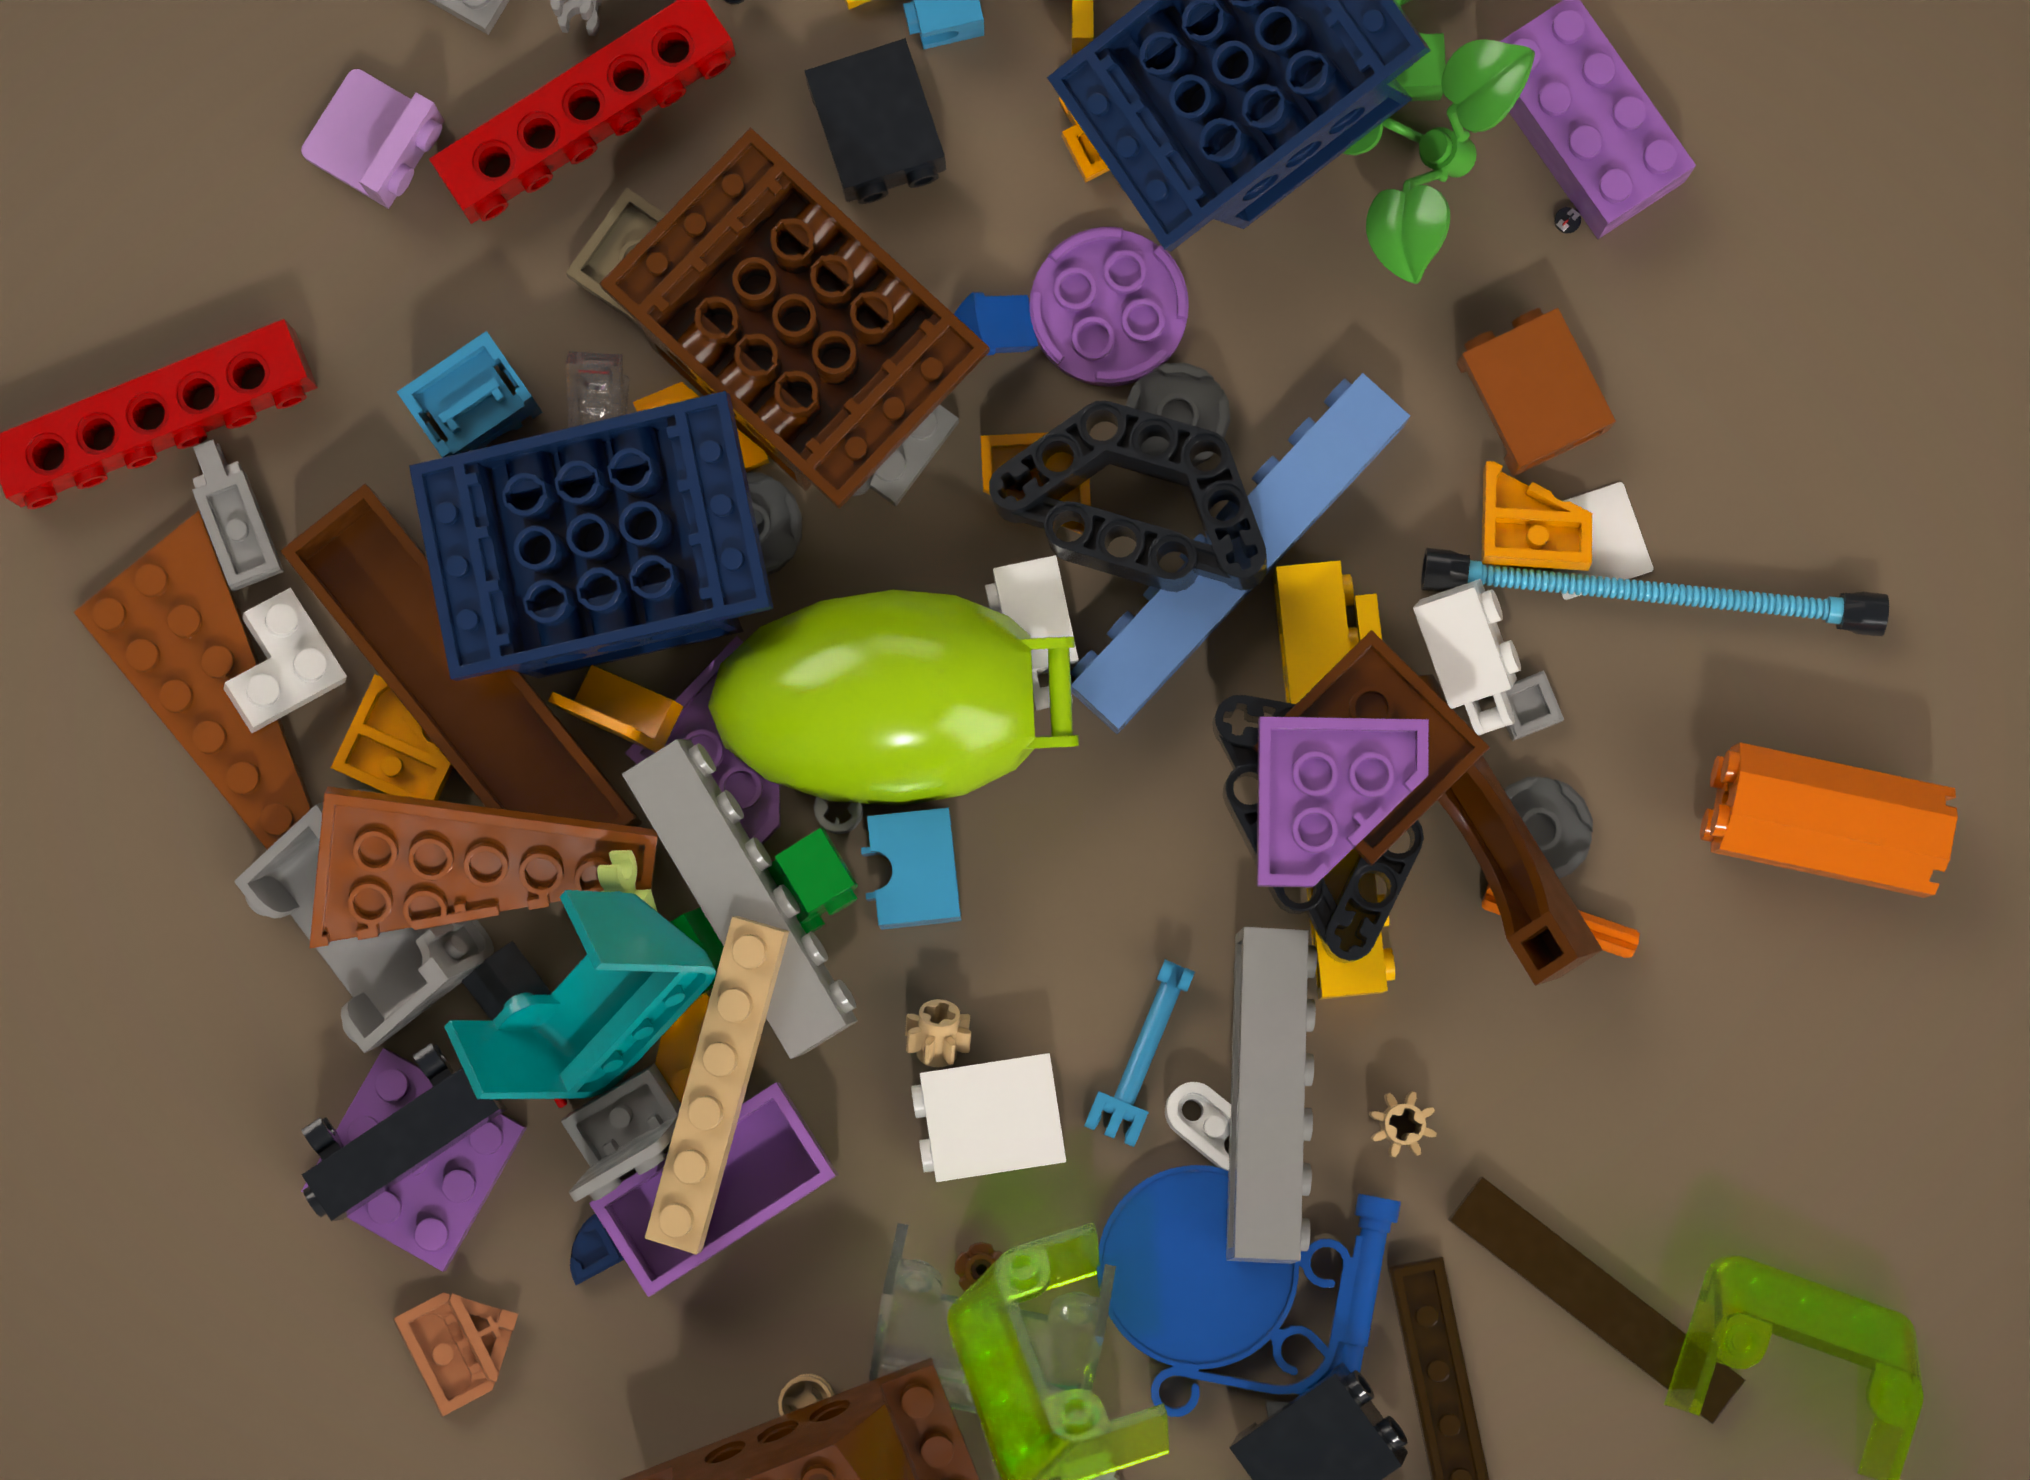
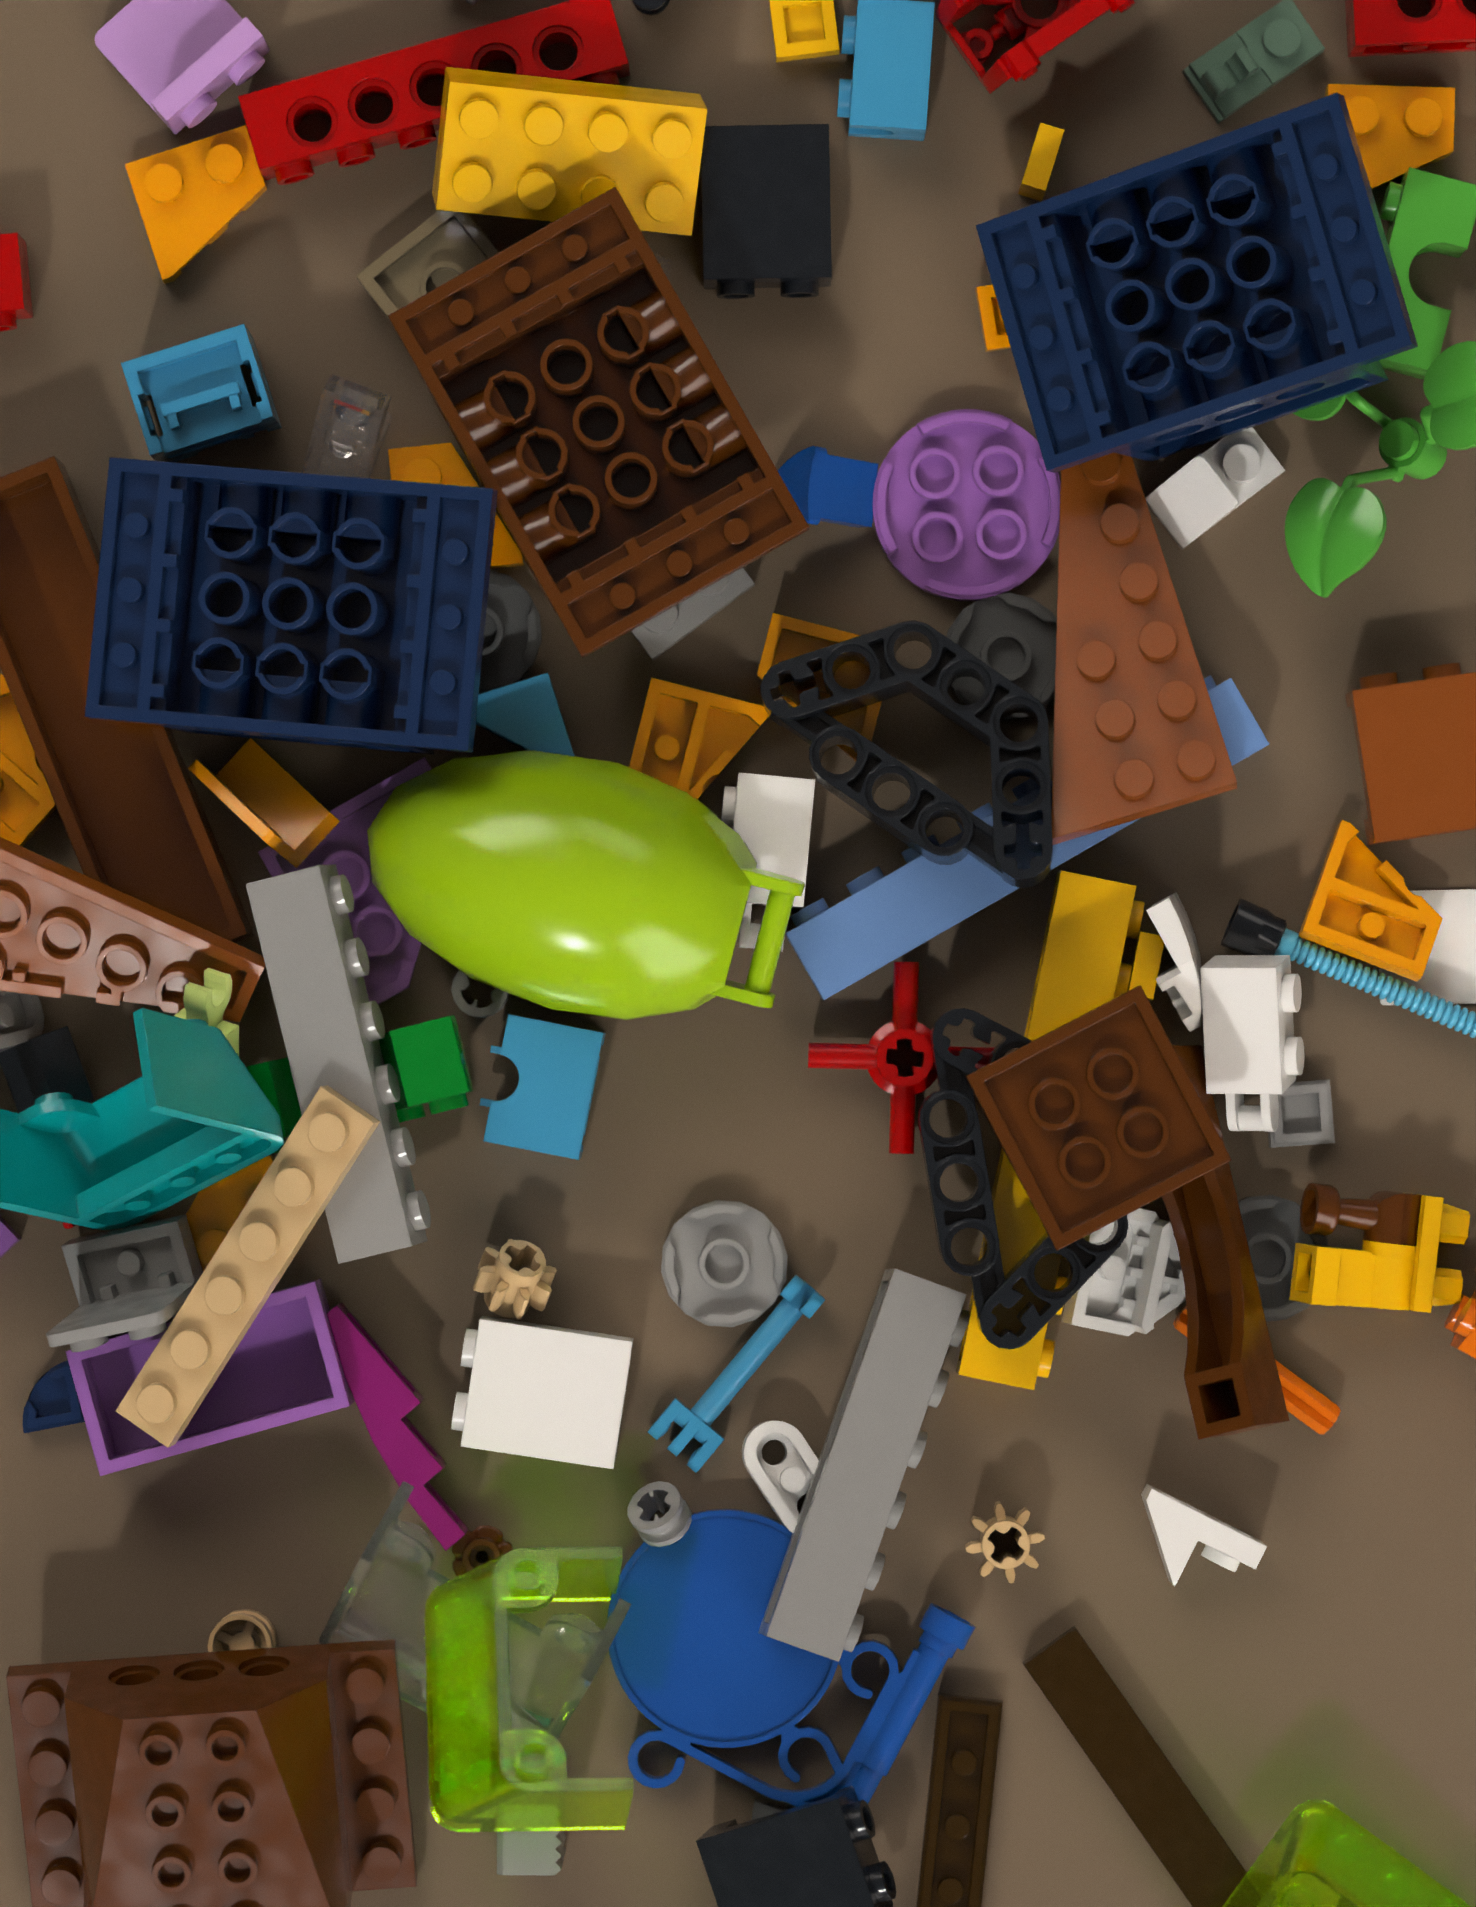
camera: 15 degrees right, 5 degrees up
(417, 250) = (194, 195): none -> light orange wing
(684, 119) = (557, 143): none -> yellow brick
(806, 577) = (526, 715): none -> dark azure slope
(863, 1168) = (384, 1401): none -> magenta slope
(946, 551) = (691, 734): none -> light orange wing
(1103, 969) = (724, 1263): none -> light grey tile
(1125, 1197) = (662, 1530): none -> light grey bush
(1184, 774) = (873, 1057): none -> red bar
(1282, 401) = (1128, 685): none -> dark orange wing
(1299, 231) = (1213, 485): none -> white slope
(1329, 788) = (1034, 1152): medium lavender plate -> none
(1401, 623) = (1184, 978): none -> white slope
(1440, 881) = (1135, 1283): none -> white slope
(1540, 1069) = (1180, 1527): none -> white slope
(1643, 788) = (1396, 1256): none -> yellow hips

